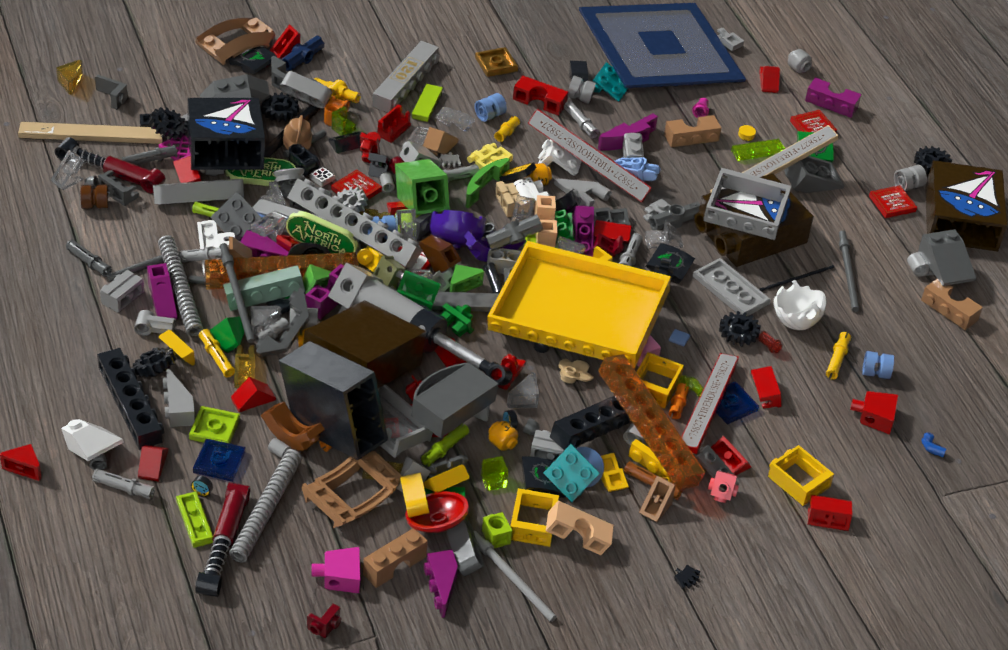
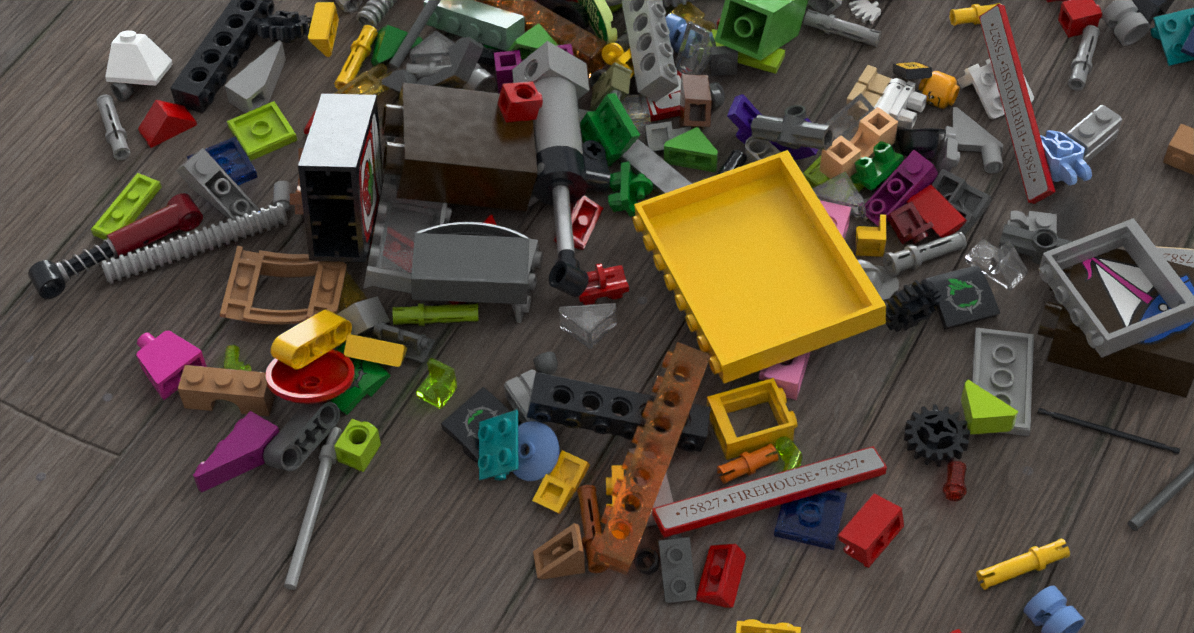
camera: 55 degrees right, 10 degrees up
(21, 461) = (68, 43): red slope -> none
(202, 486) = (168, 180): tile -> none
(238, 466) = (215, 185): none -> light grey slope
(325, 624) = (87, 402): dark red bracket -> none
(371, 545) = (231, 359): none -> clear neon green arm
(372, 301) = (519, 101): none -> red brick
(454, 224) = (762, 93): dark purple cylinder -> none
(484, 176) = (864, 52): bright green slope -> none
(488, 154) = (911, 36): light yellow plate -> none
(503, 435) = (499, 349): light orange head -> none
(511, 417) = (532, 339): black tile -> none
(521, 529) = (422, 482): yellow window -> none
(574, 371) = (676, 330): tan plate -> none
(594, 531) = (417, 487): light nougat arch -> none
(614, 138) = (1135, 114): magenta slope -> none
(679, 337) = (857, 392): medium blue piece -> none
(727, 479) = (652, 600): coral brick -> none
(747, 300) = (985, 411): none -> lime slope
(799, 306) = (1040, 463): white piece -> none

